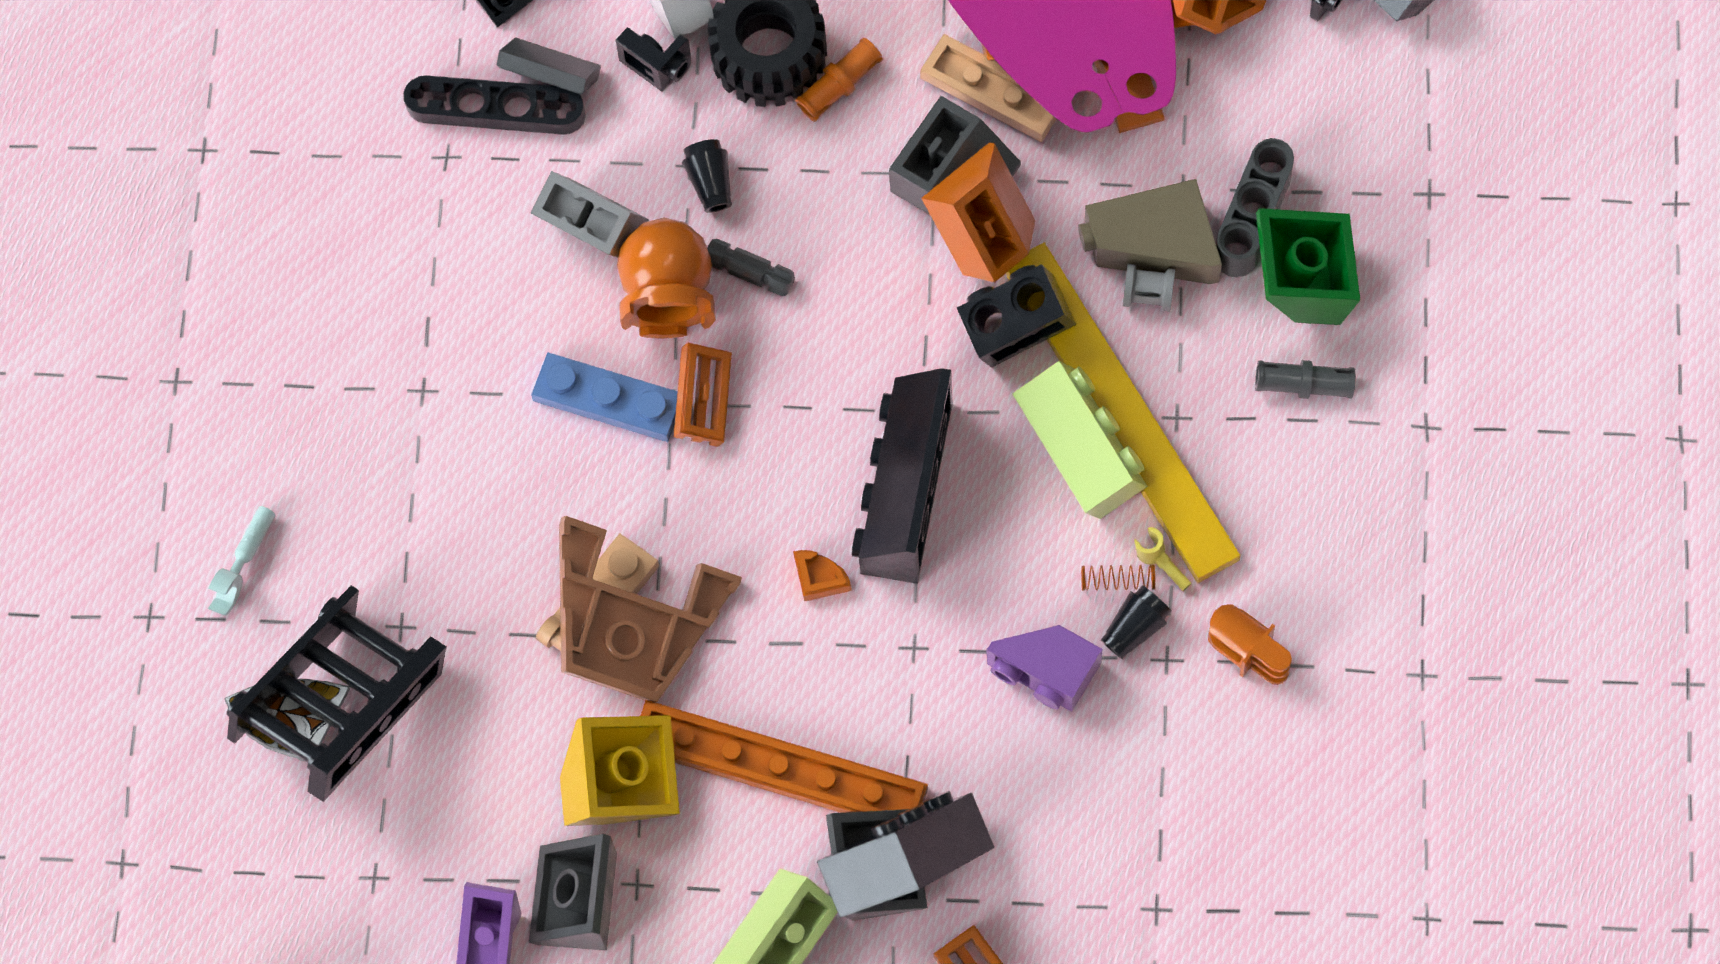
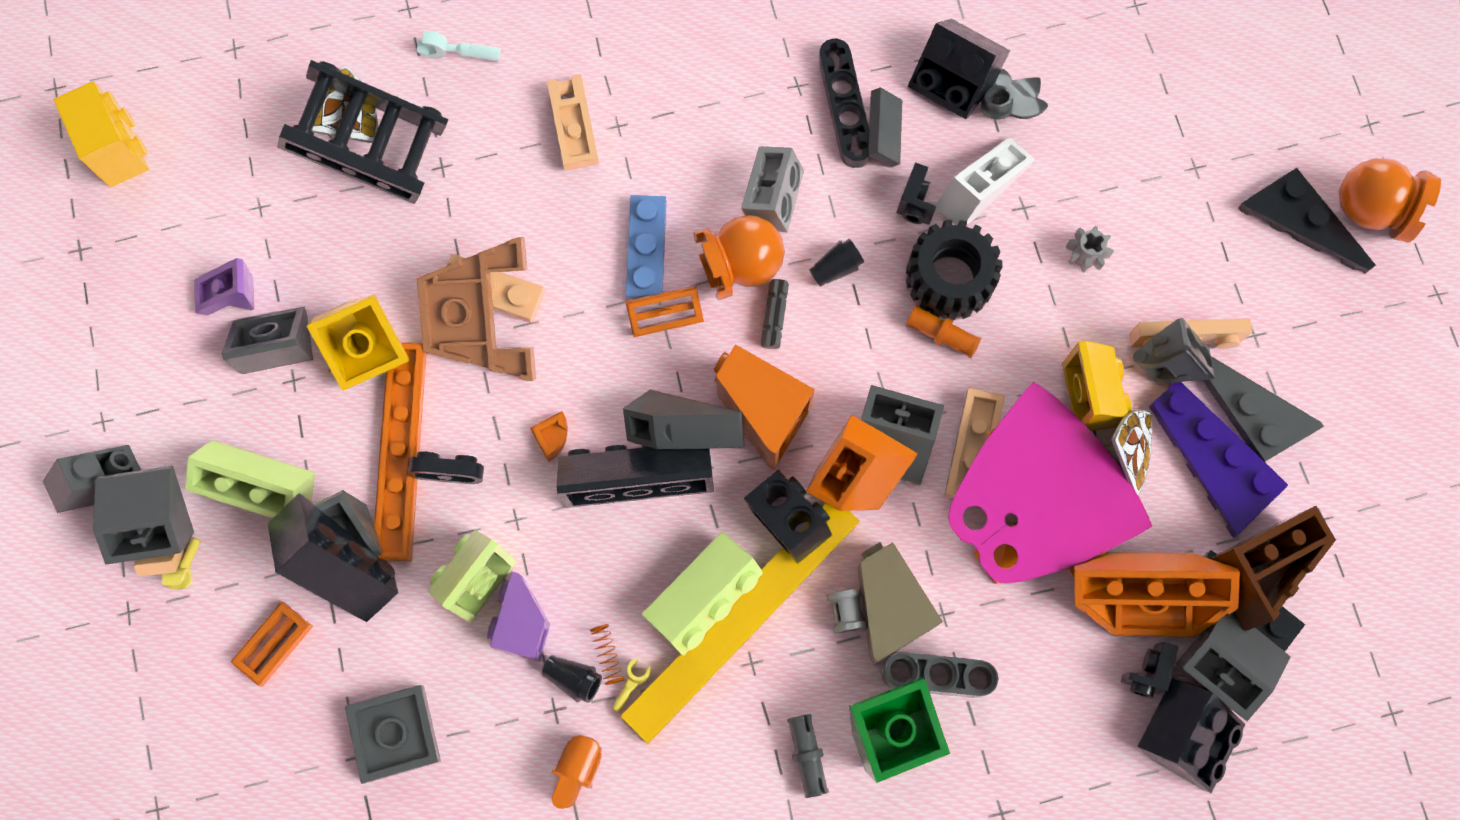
camera: 70 degrees right, 5 degrees up
(402, 439) = (573, 123): none -> light nougat plate
(833, 690) = (433, 468): none -> black plate
(865, 399) = (681, 423): none -> dark grey slope
(869, 303) = (769, 400): none -> orange slope
(975, 696) = (471, 575): none -> yellowish green slope
(1142, 851) = (392, 734): none -> dark grey plate

